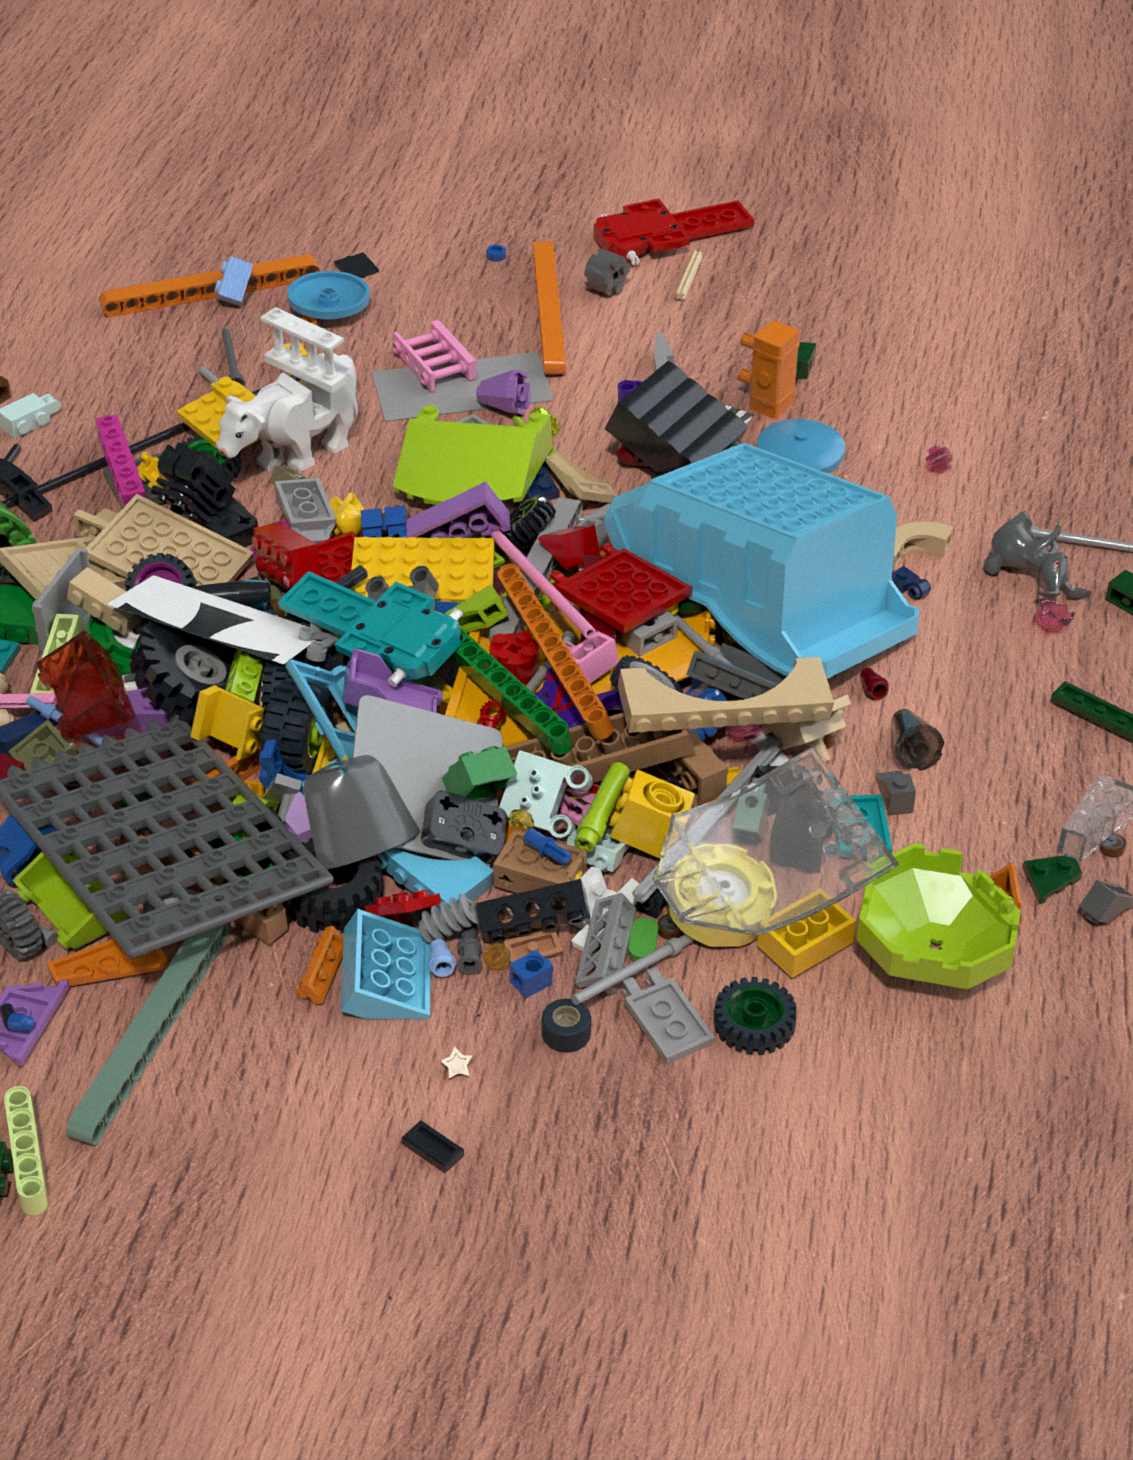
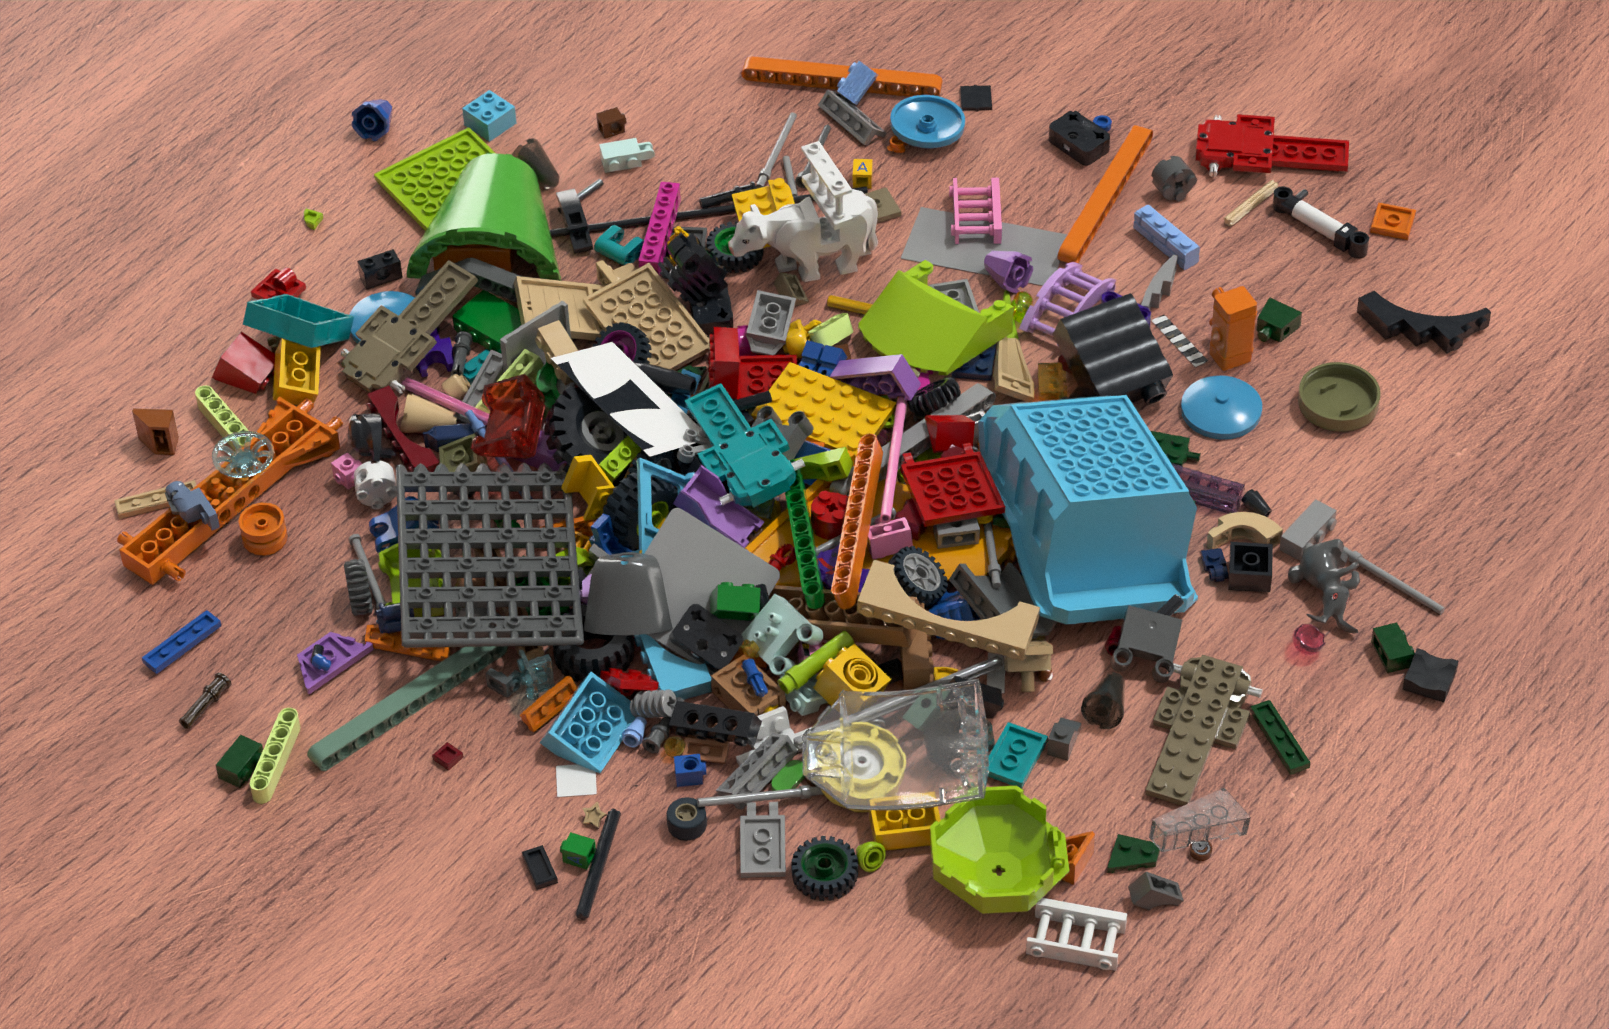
camera: 30 degrees right, 5 degrees up
(22, 667) = (489, 373): none -> light grey piece
(70, 501) = (609, 246): none -> teal connector
(81, 939) = (390, 618): none -> dark blue piece
(163, 420) = (724, 197): none -> black pin
(191, 387) = (765, 173): none -> light grey bar
(236, 314) = (850, 117): none -> light grey fence
(238, 1069) = (447, 756): none -> dark red tile
(251, 965) = (501, 683): none -> dark grey bracket
(288, 940) = (535, 674): none -> clear light blue bracket
(368, 475) = (848, 304): none -> yellow axle
(371, 496) = (832, 330): none -> yellowish green beam
(405, 1037) = (575, 780): none -> white sticker
(468, 1108) = (578, 850): none -> green brick
(486, 268) = (1079, 138): none -> black axle
(500, 1116) = (598, 864): none -> black axle
(569, 391) = (1054, 285): none -> lavender fence
(624, 474) = (1051, 381): none -> clear yellow brick
(634, 322) = (1166, 236): none -> light blue brick
(795, 980) = (870, 856): none -> lime brick
(797, 274) = (1344, 236): none -> black piece
(827, 252) = (1393, 221): none -> orange tile
(904, 402) = (1339, 396): none -> olive brick
(906, 515) = (1255, 502): none -> black cone
(913, 663) = (1150, 637): none -> dark grey piece
(925, 326) = (1420, 328): none -> black arch
(939, 458) = (1326, 461): clear pink gear -> none
(949, 570) = (1250, 566): none -> black brick
(973, 522) = (1308, 529): none -> light grey brick
(1010, 715) = (1198, 716): none -> dark tan piece
(1070, 953) = (1080, 915): none -> white fence

